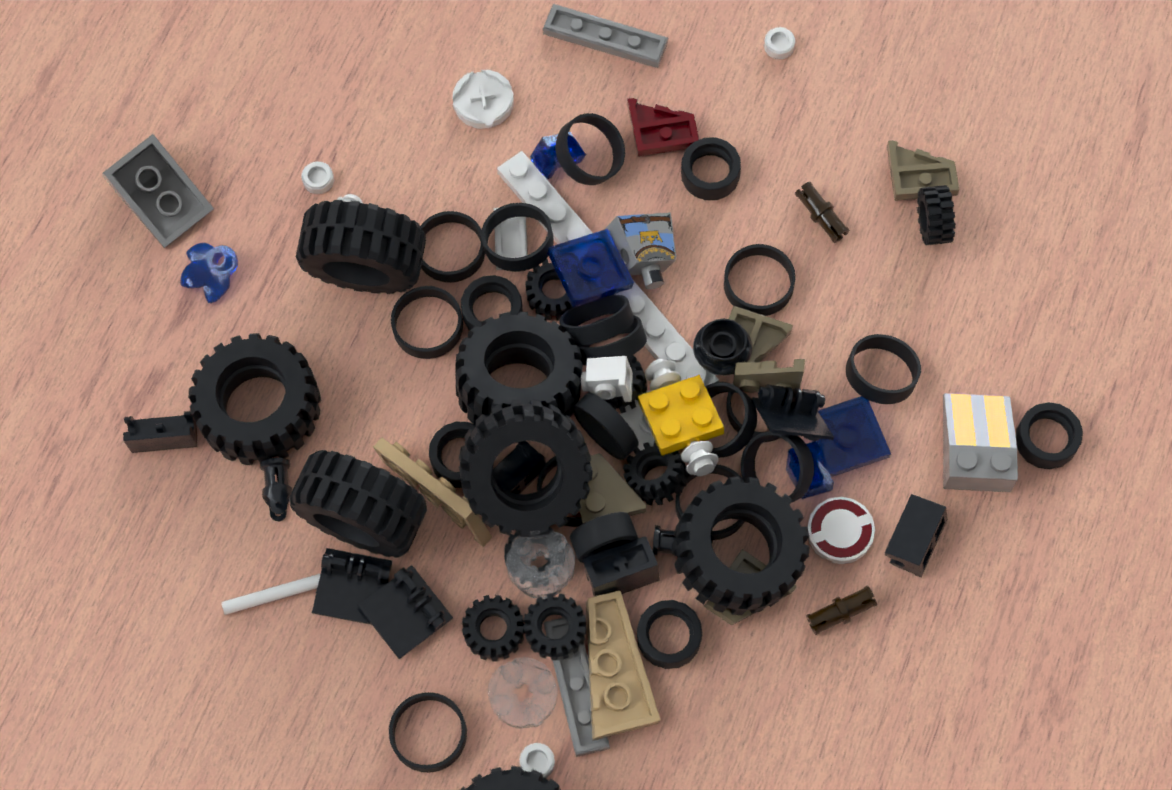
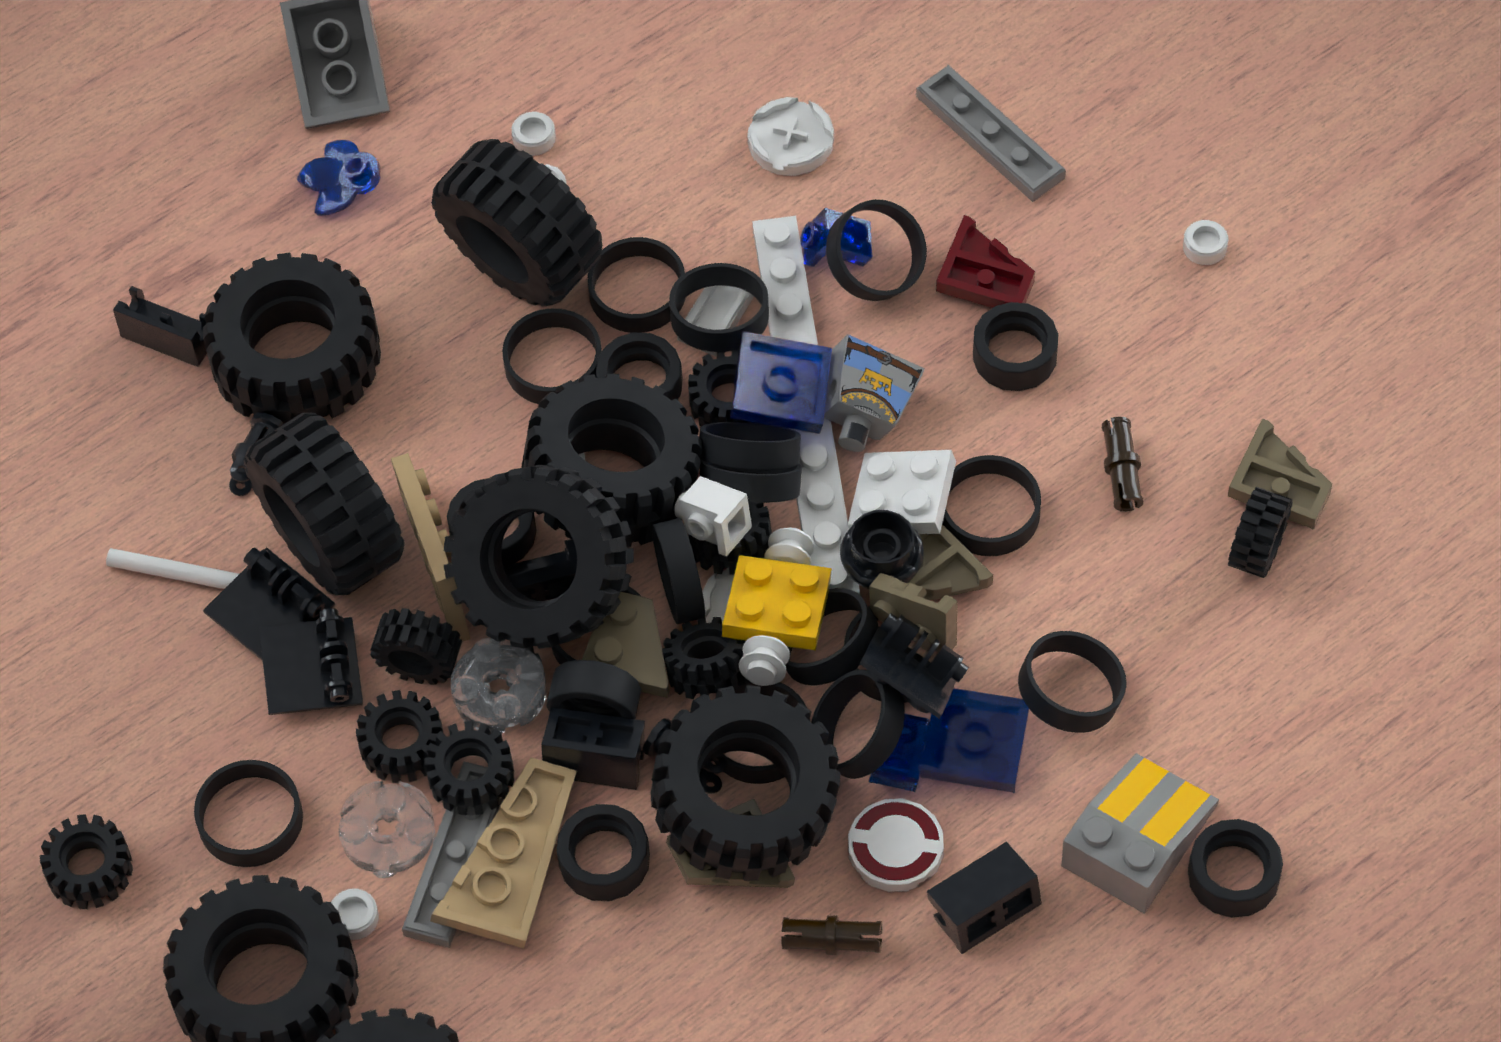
camera: 30 degrees right, 10 degrees down
(469, 564) = (416, 646): none -> black tyre
(703, 297) = (907, 484): none -> white plate

